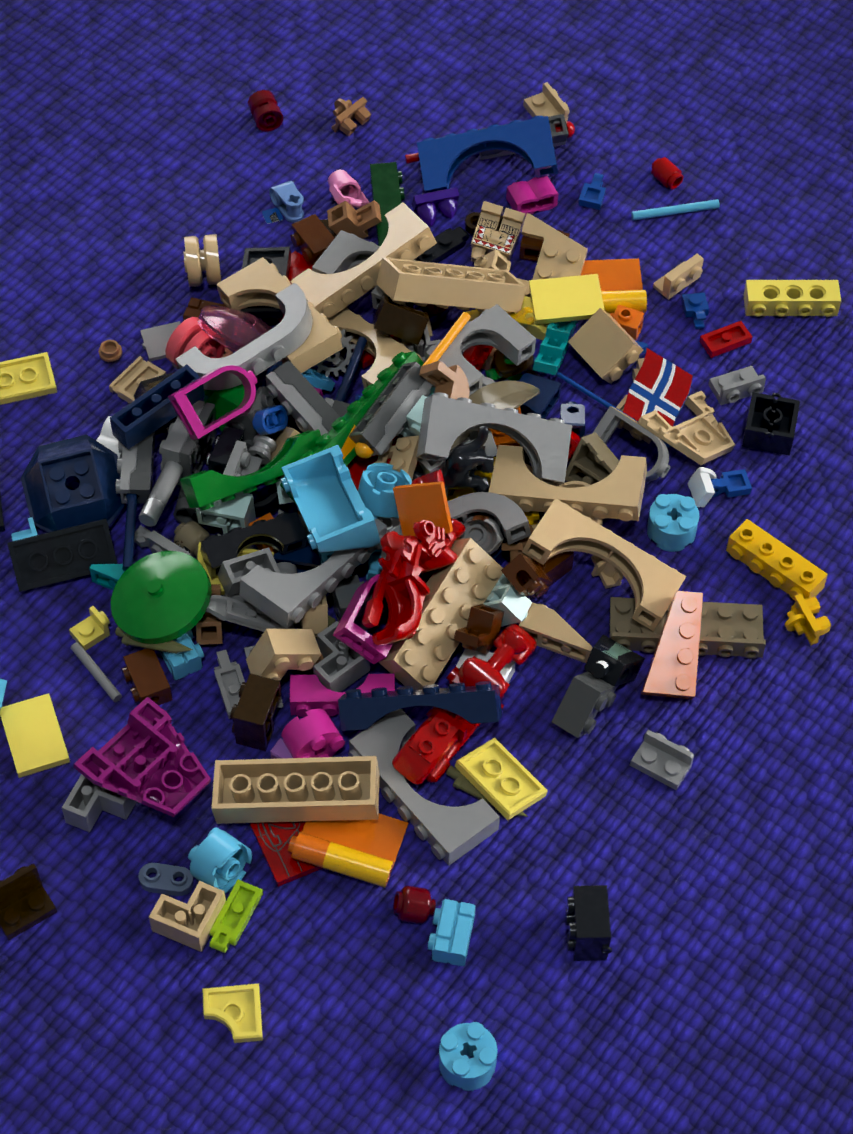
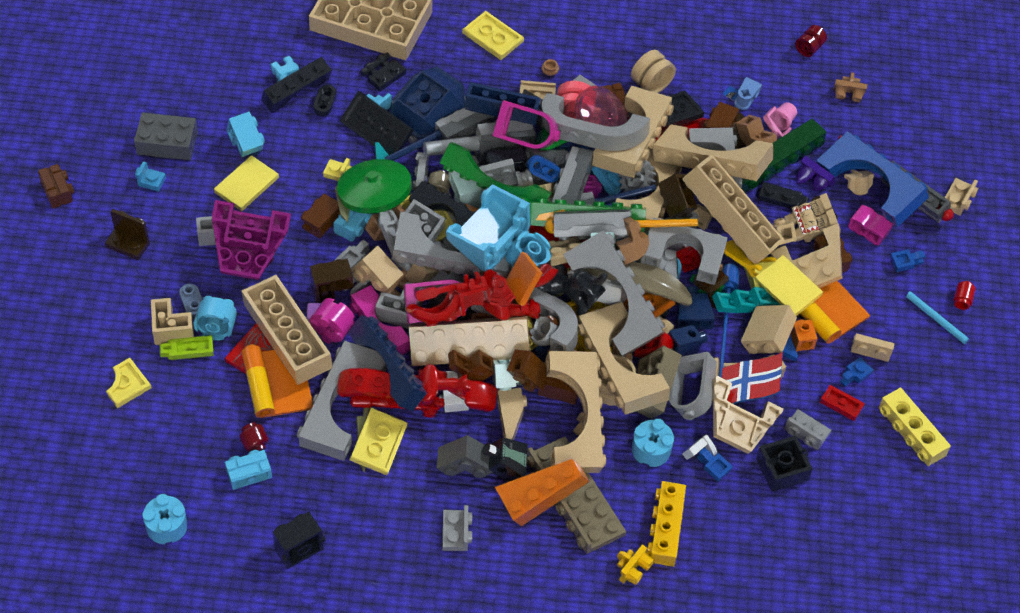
camera: 55 degrees right, 0 degrees up
(96, 672) = (308, 194): light grey bar -> none
(474, 173) = (859, 181): none -> tan piece

